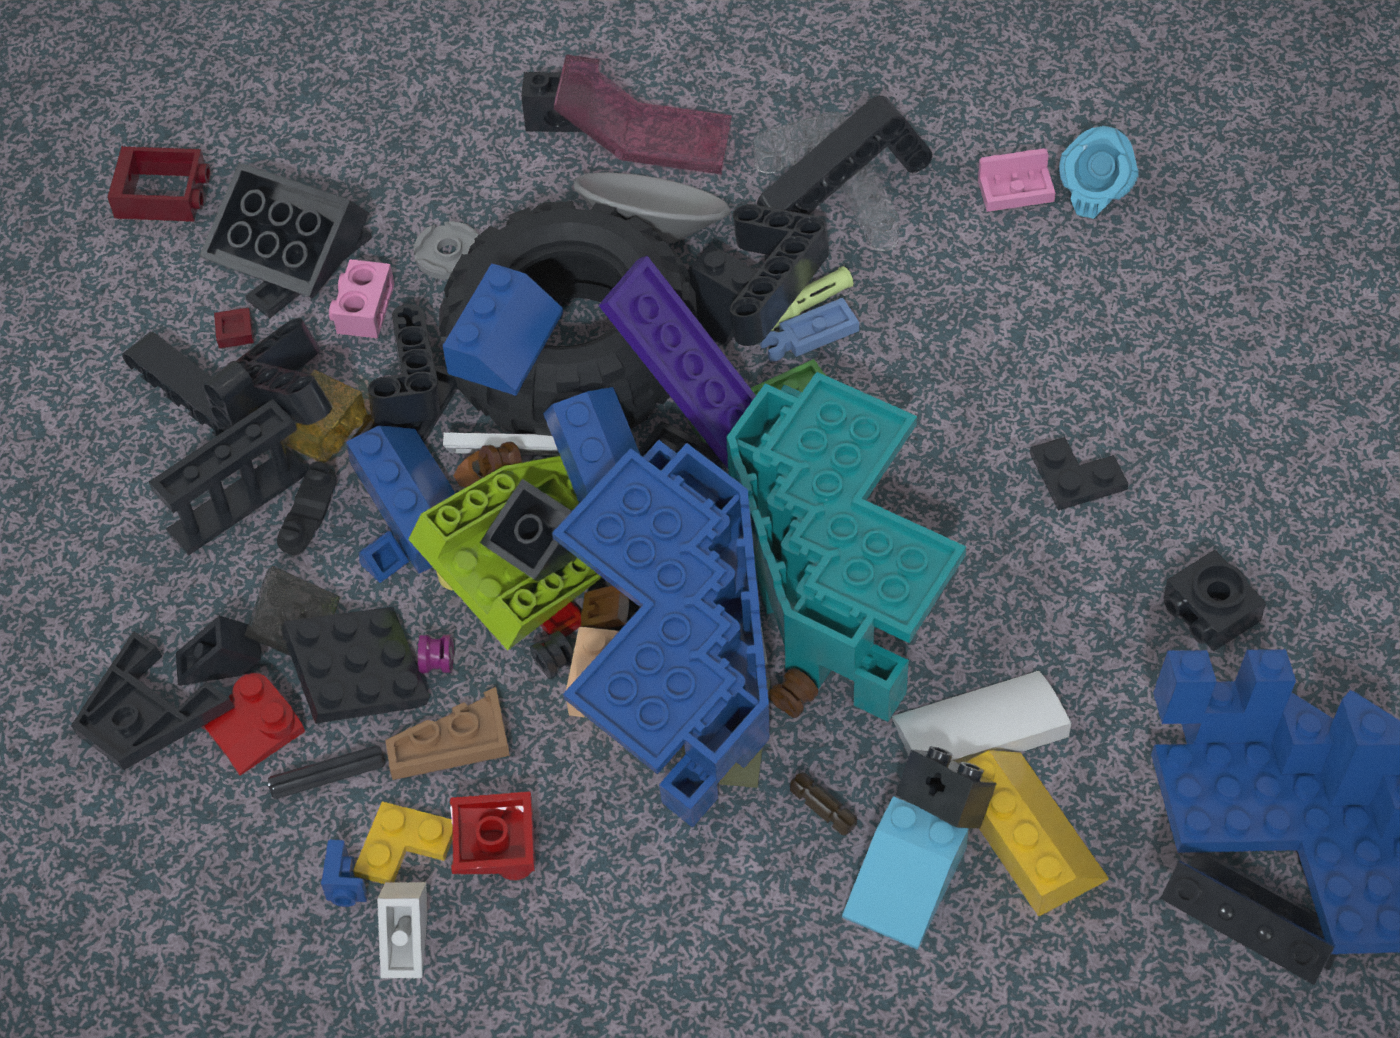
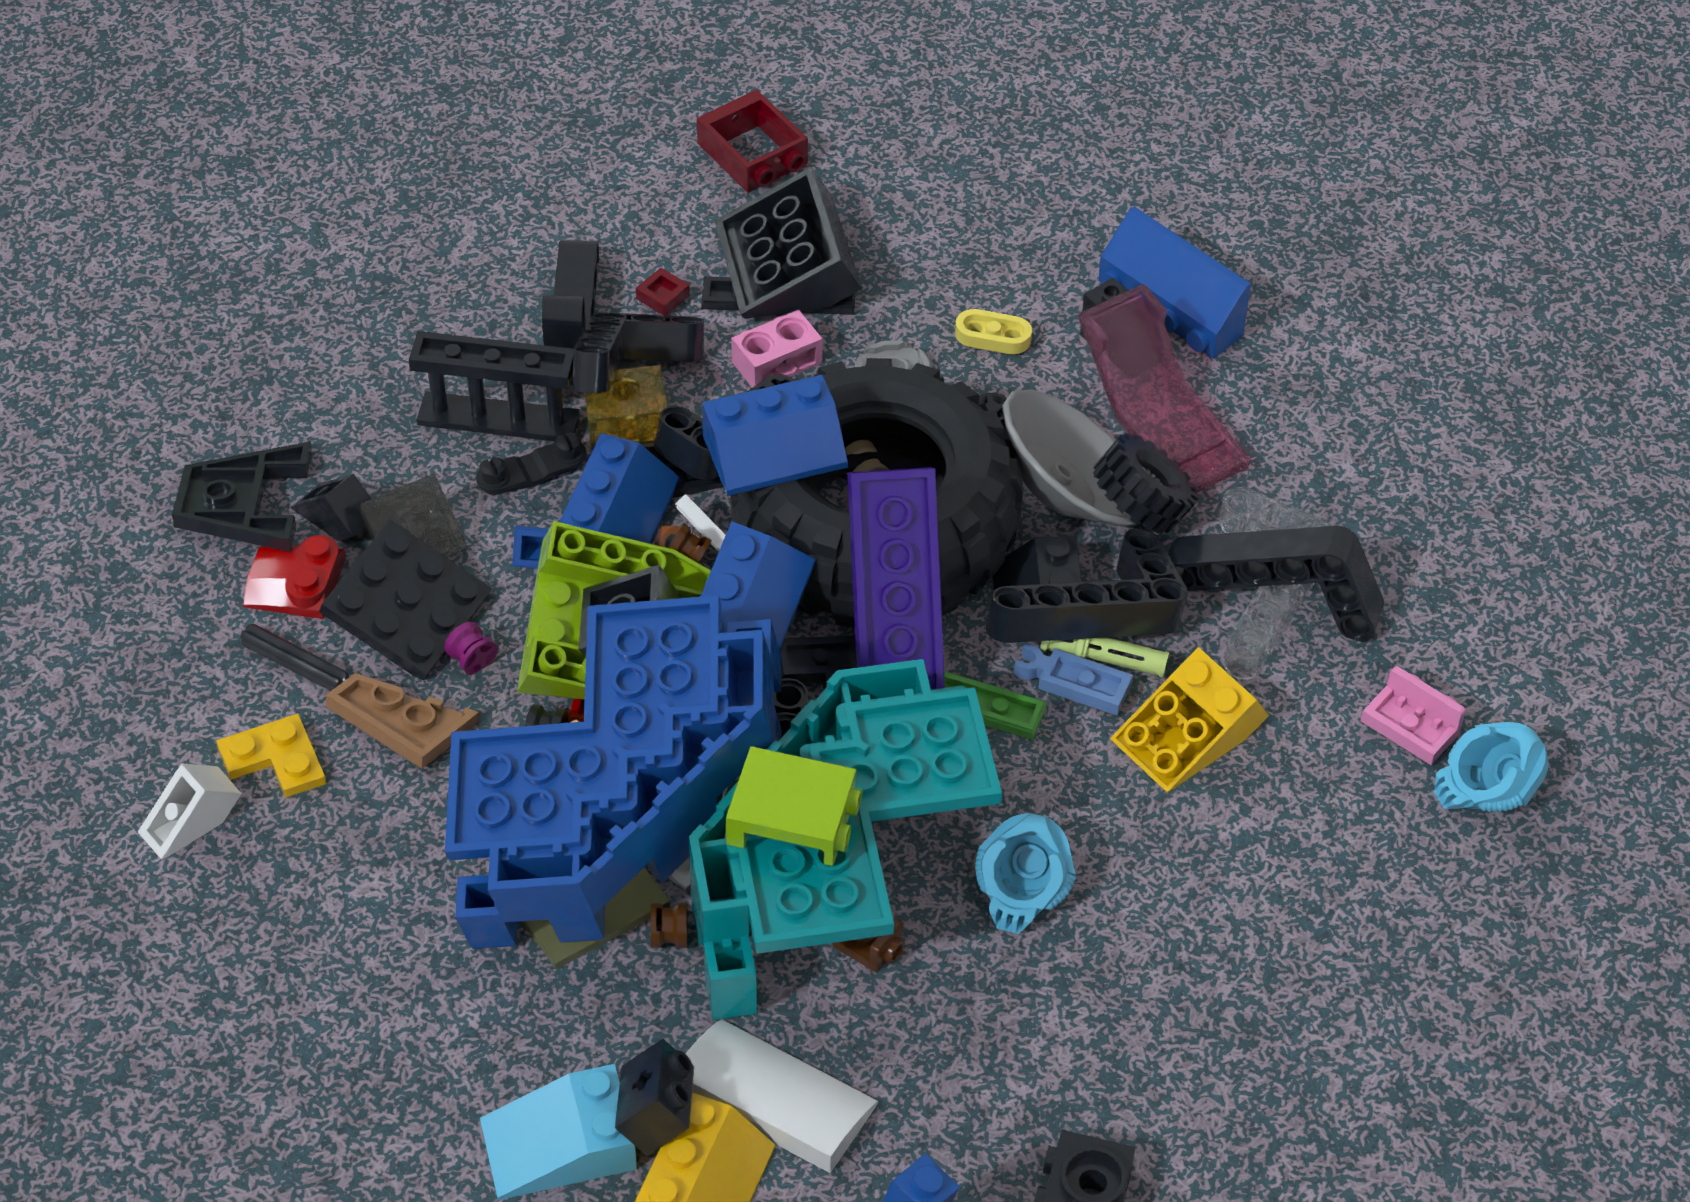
camera: 45 degrees right, 5 degrees down
(338, 876) = (201, 730): blue bracket -> none
(476, 173) = (993, 331): none -> light yellow plate
(493, 835) = (328, 809): red slope -> none
(544, 38) = (1200, 294): none -> blue slope
(707, 178) = (1145, 483): none -> black bush
(823, 803) = (580, 1027): dark brown axle -> none
(825, 532) = (793, 802): none -> lime panel
(908, 295) = (1189, 722): none -> yellow slope
(946, 461) = (1024, 870): none -> medium azure helmet
(1075, 483) = (1116, 990): black plate -> none

